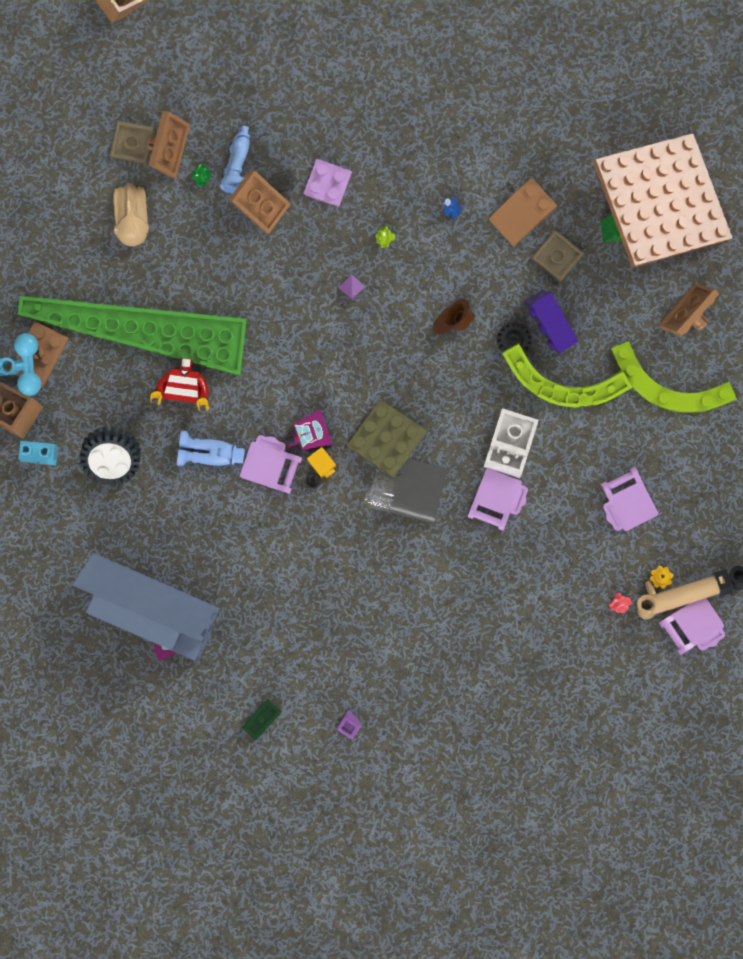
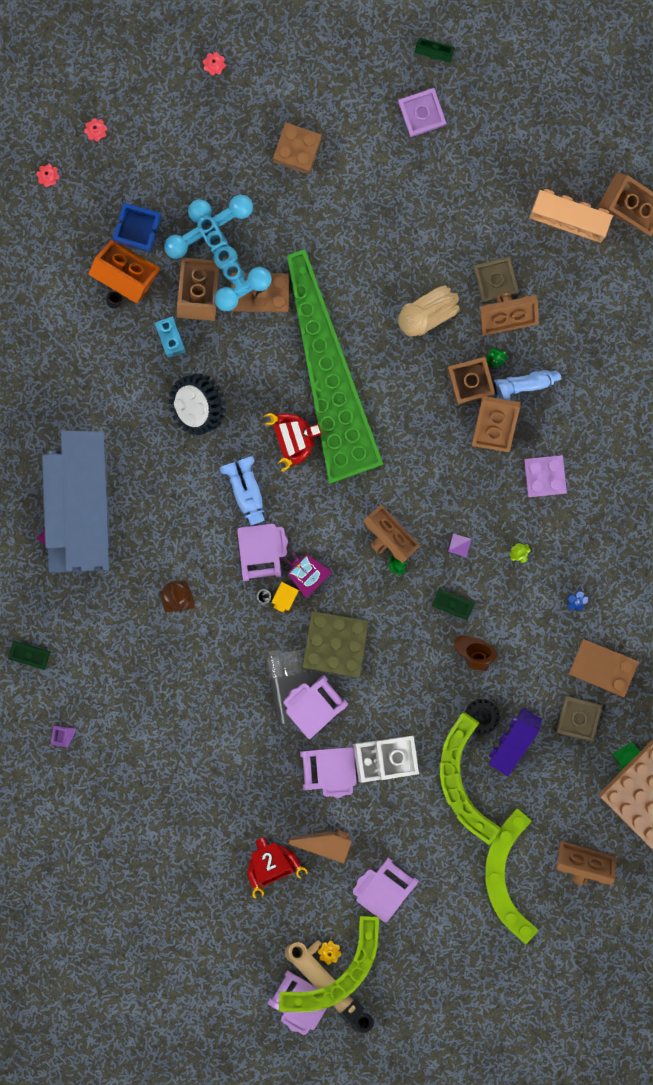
camera: 60 degrees right, 5 degrees up
(108, 49) = (571, 216): none -> light nougat brick
(210, 206) = (470, 381): none -> medium nougat brick
(274, 561) = (177, 596): none -> reddish brown piece
(312, 342) = (390, 534): none -> medium nougat plate
(342, 349) = (397, 566): none -> green plant
(401, 318) = (452, 604): none -> dark green plate
(432, 488) = (310, 709): none -> lavender piece
(556, 591) = (271, 864): none -> red torso
(563, 528) = (327, 844): none -> medium nougat slope
(620, 603) = (287, 926): coral plant -> none
(696, 573) = (346, 984): none -> lime plate

